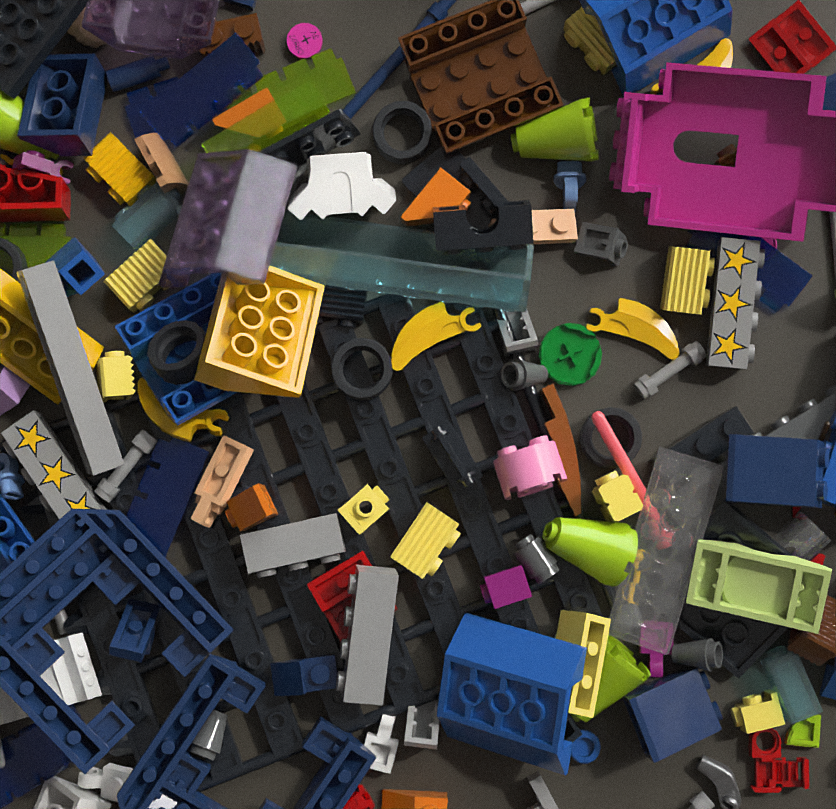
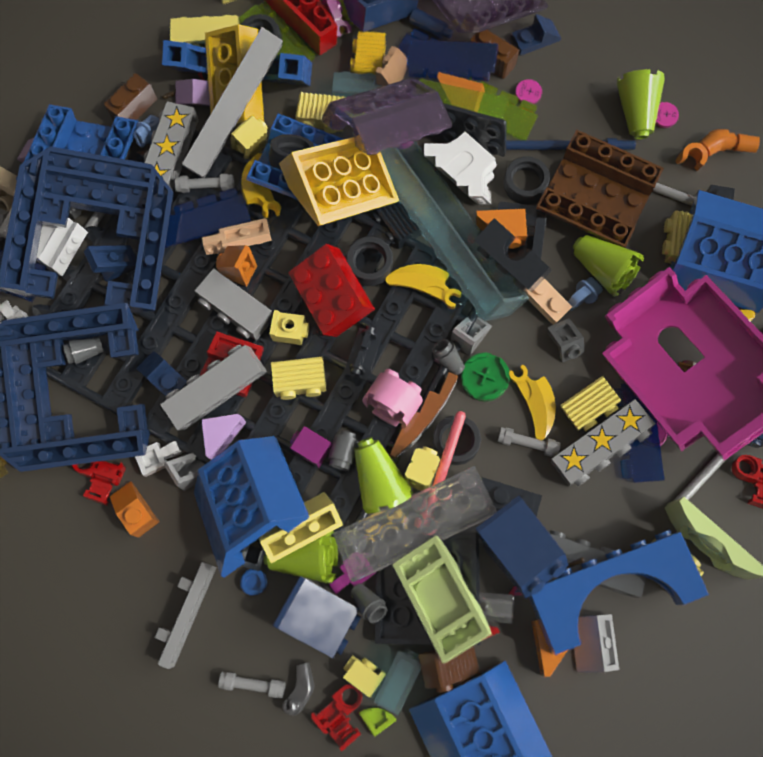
camera: 55 degrees right, 10 degrees down
(365, 436) = (331, 290): none -> red brick
(416, 665) = (220, 432): none -> lavender slope

